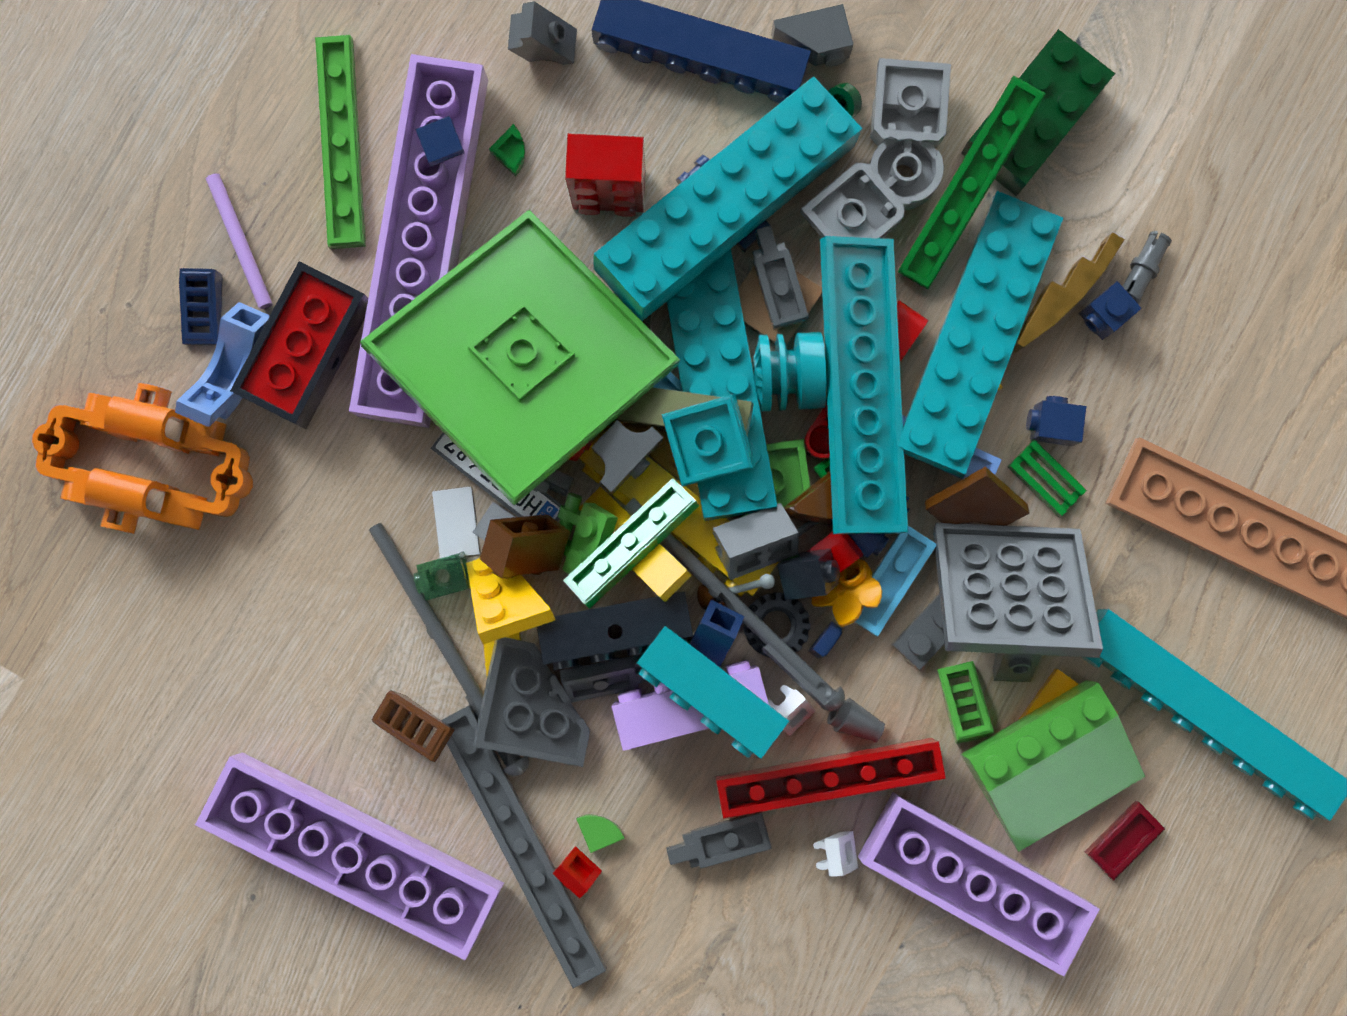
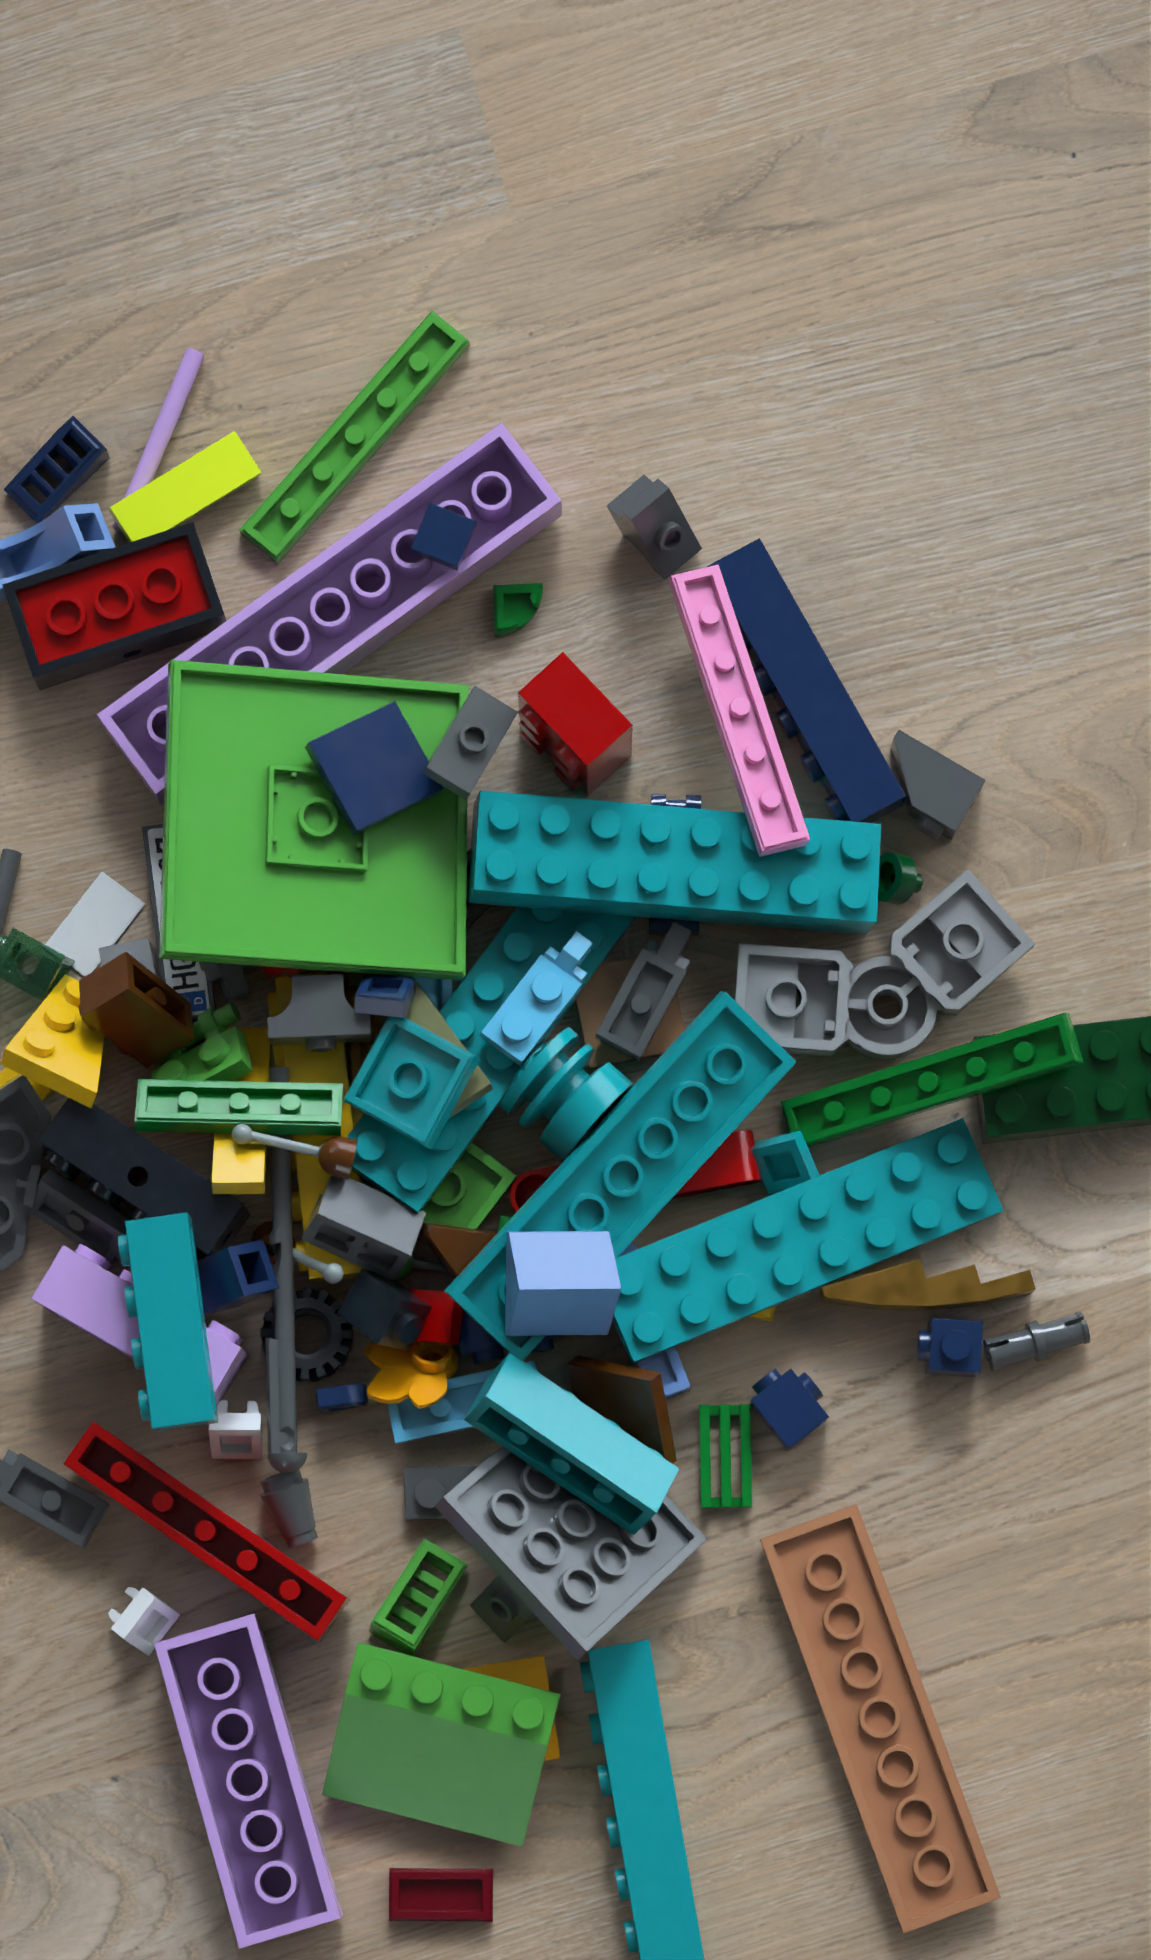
camera: 45 degrees right, 5 degrees down
(278, 250) = (186, 489): none -> neon yellow tile
(525, 296) = (373, 767): none -> dark blue tile
(562, 233) = (470, 742): none -> dark grey brick
(650, 410) = (385, 995): none -> dark blue tile
(685, 85) = (739, 711): none -> bright pink tile
(707, 518) = (334, 1154): none -> hinge
(729, 336) = (538, 1000): none -> medium azure hinge
(890, 469) = (560, 1283): none -> medium blue slope
(932, 299) = (784, 1161): none -> teal plate
(975, 548) = (572, 1444): none -> brick

